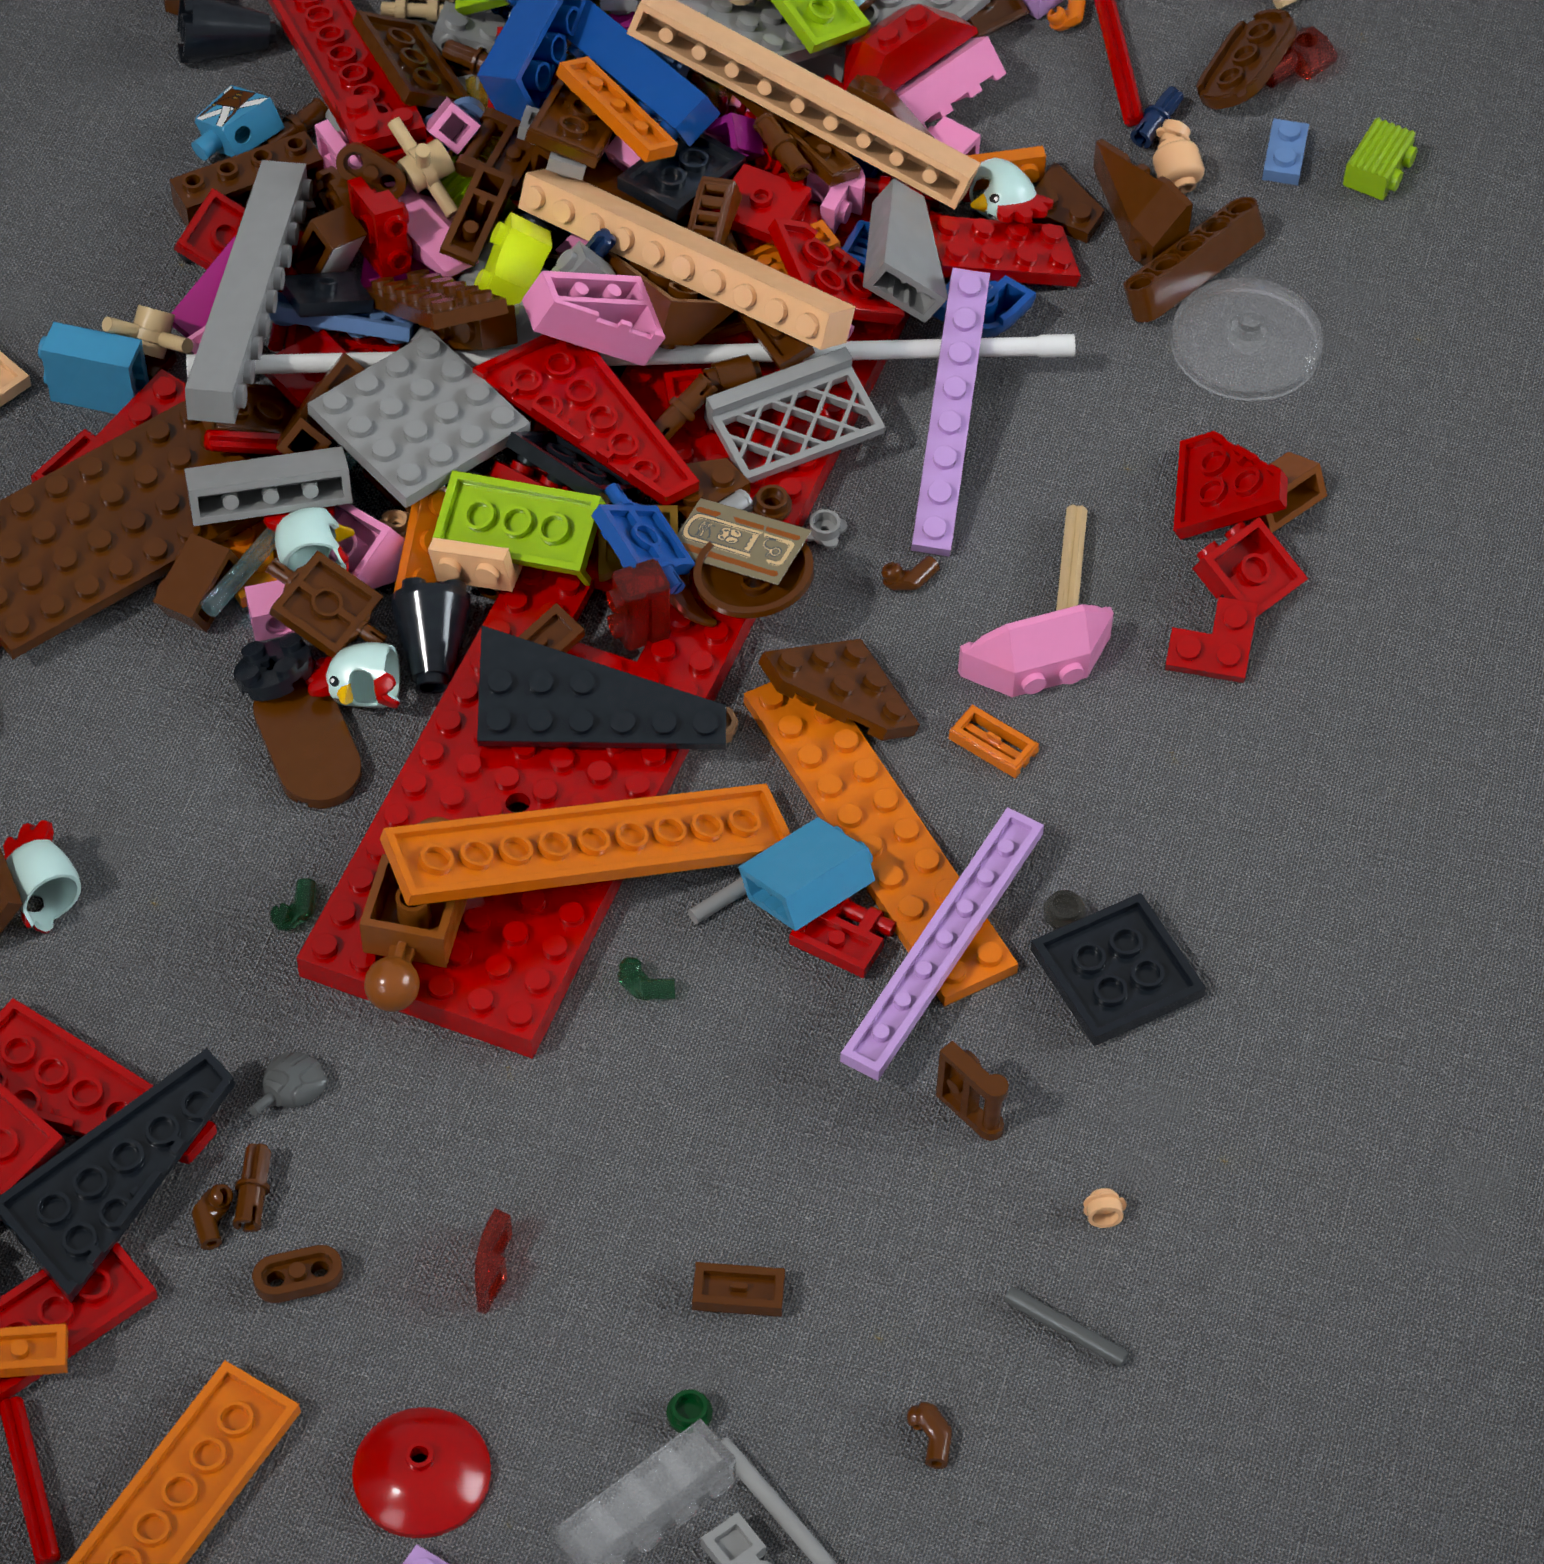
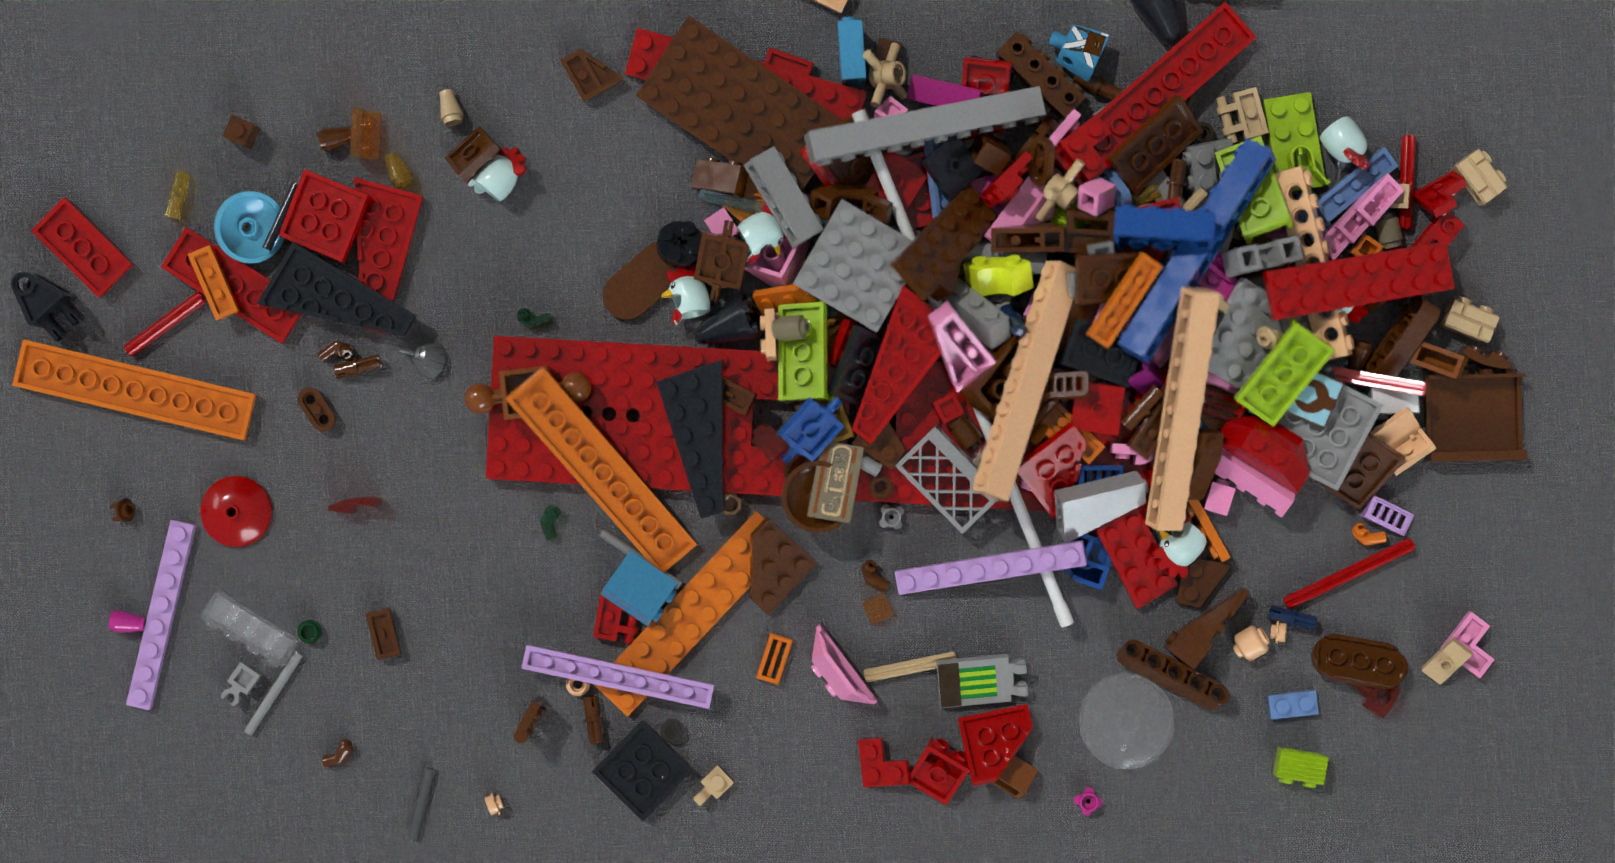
camera: 75 degrees right, 35 degrees up
(473, 515) = (790, 327): none -> dark tan brick
(685, 406) = (927, 413): reddish brown pin -> none
(938, 1012) = (576, 691): none -> light nougat plate
(962, 586) = (877, 608): none -> clear orange tile
(1005, 1015) = (593, 719): none -> reddish brown axle
(1122, 486) = (979, 680): none -> tile
(1176, 877) = (715, 784): none -> tan plate
(1357, 411) = (1087, 808): none -> dark pink plate

